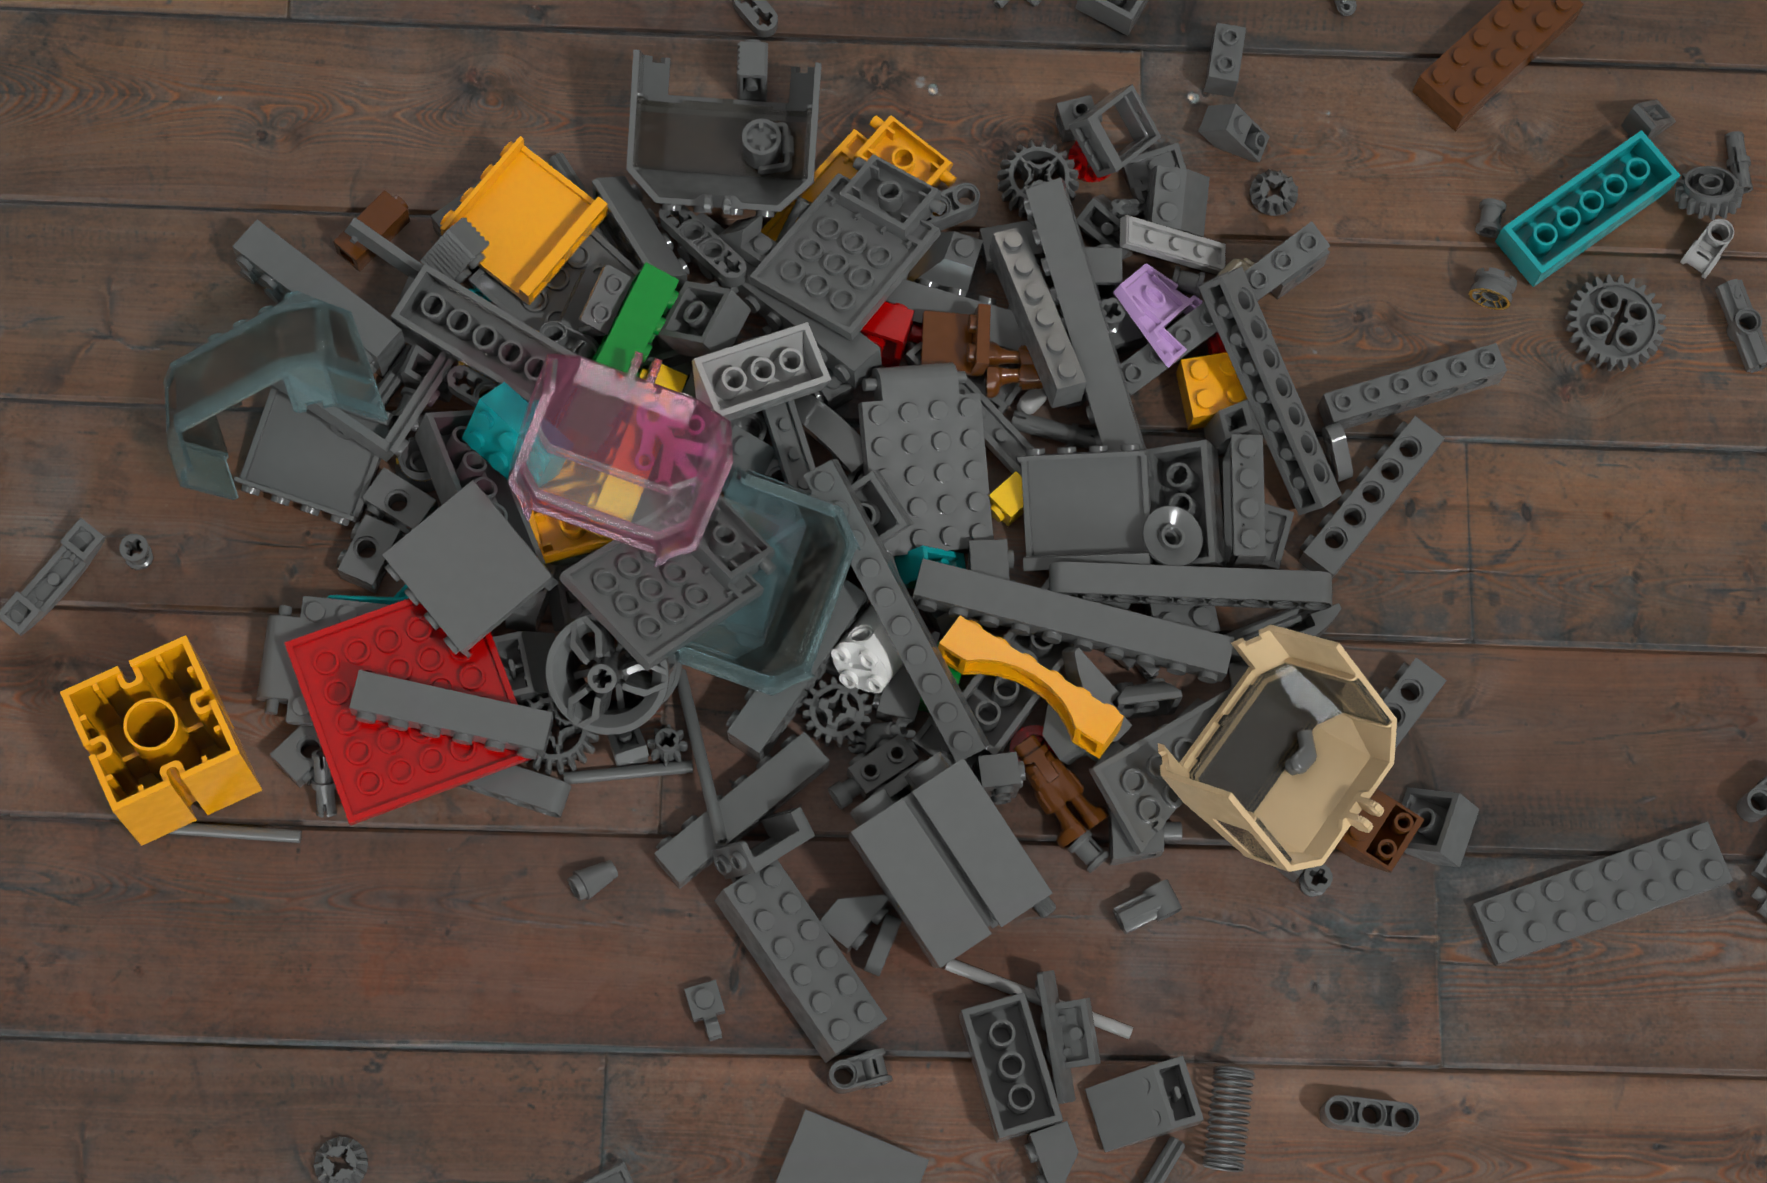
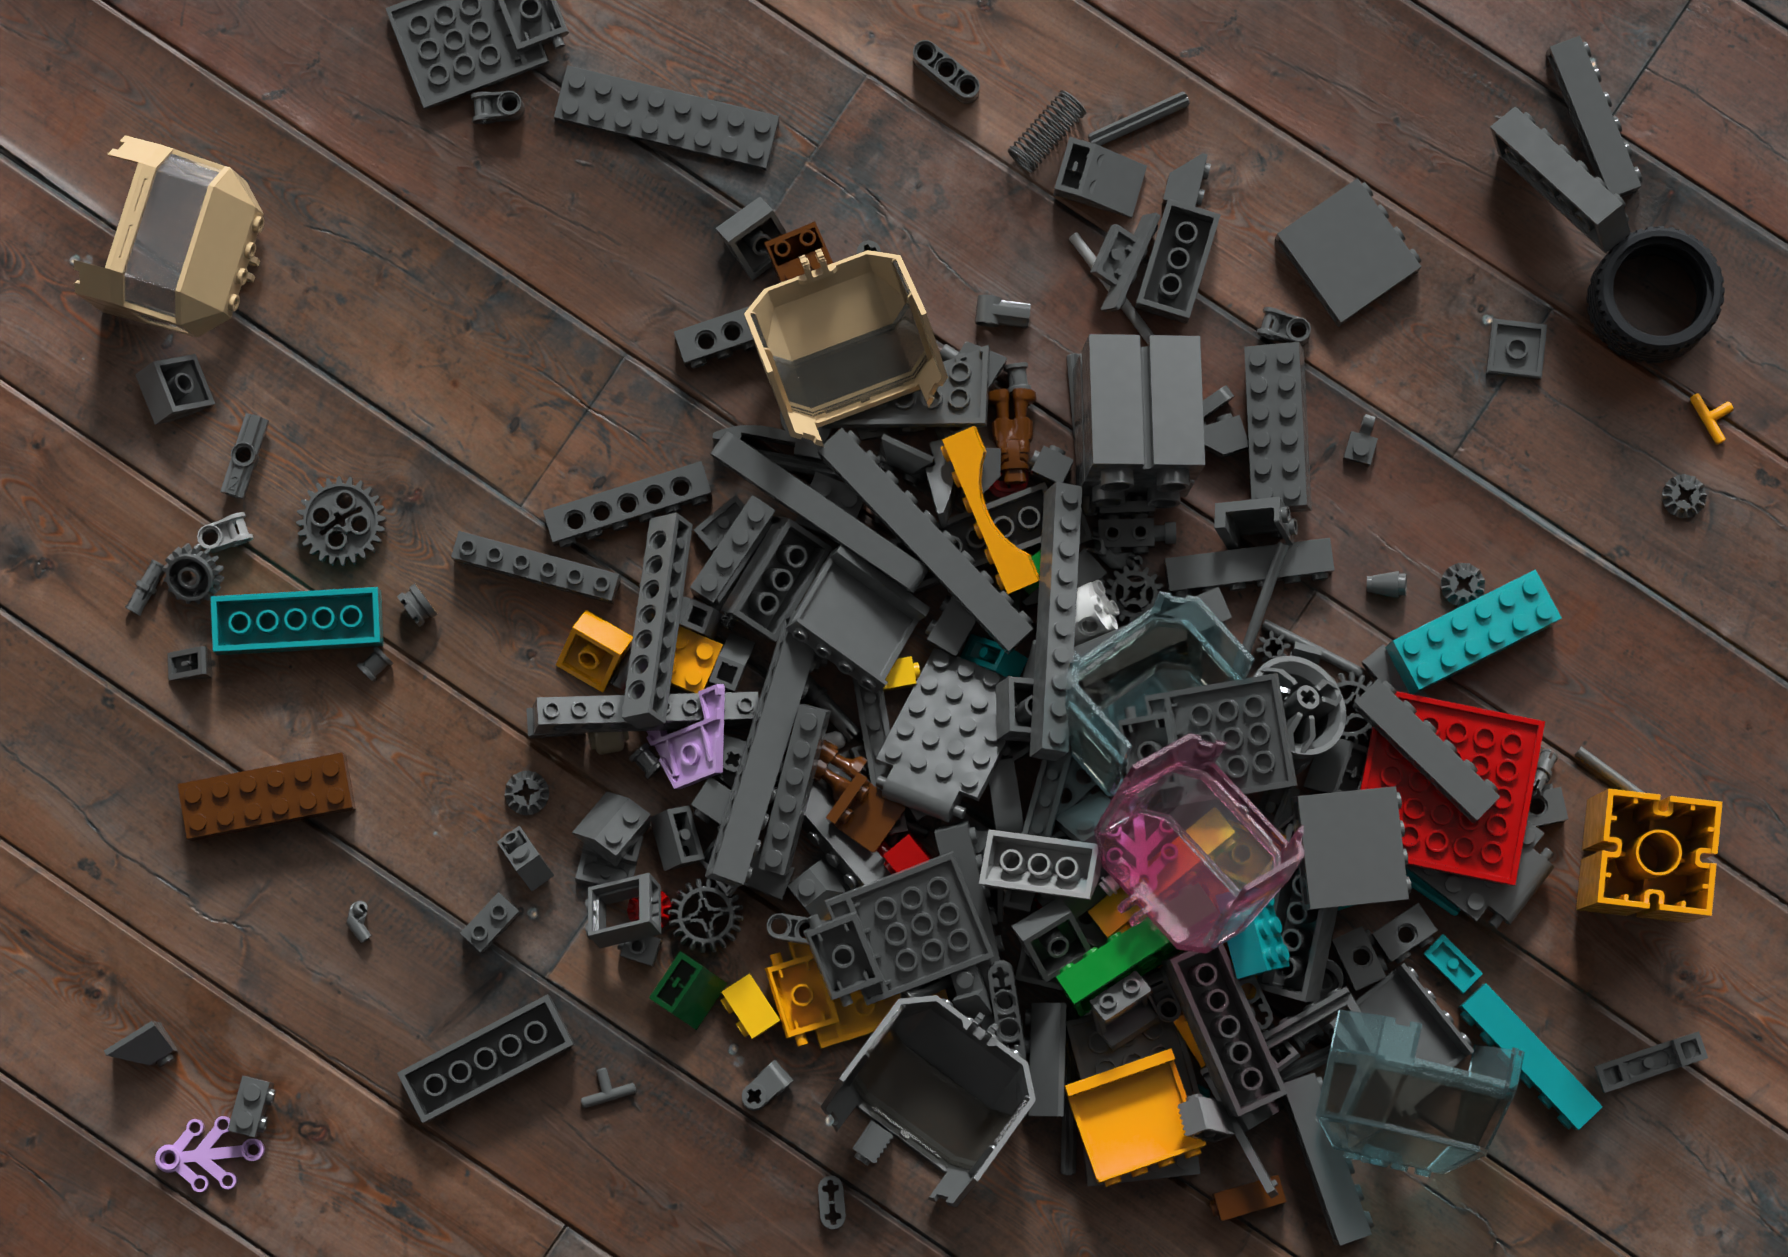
camera: 140 degrees left, 10 degrees up
(136, 561) = (1584, 1047): dark grey bush -> none
(175, 512) = (1539, 1067): none -> teal brick
(304, 555) = (1452, 963): none -> teal plate
(475, 877) = (1473, 632): none -> teal brick
(522, 942) = (1450, 583): none -> dark grey gear
(764, 145) = (903, 1075): dark grey piece -> none
(881, 69) = (769, 1082): none -> dark grey piece
(944, 126) = (750, 1007): none -> yellow brick
(1009, 105) = (688, 990): none -> dark green slope
(1127, 207) = (657, 842): dark grey axle -> none
(1172, 244) = (643, 790): light grey tile -> none
(1172, 410) = (732, 662): none -> dark grey slope
(1182, 530) = (799, 548): dark grey dish -> none
(1305, 756) = (819, 340): dark grey arm -> none
(1308, 348) = (594, 650): none -> light orange slope
(1337, 451) = (629, 553): dark grey beam -> none

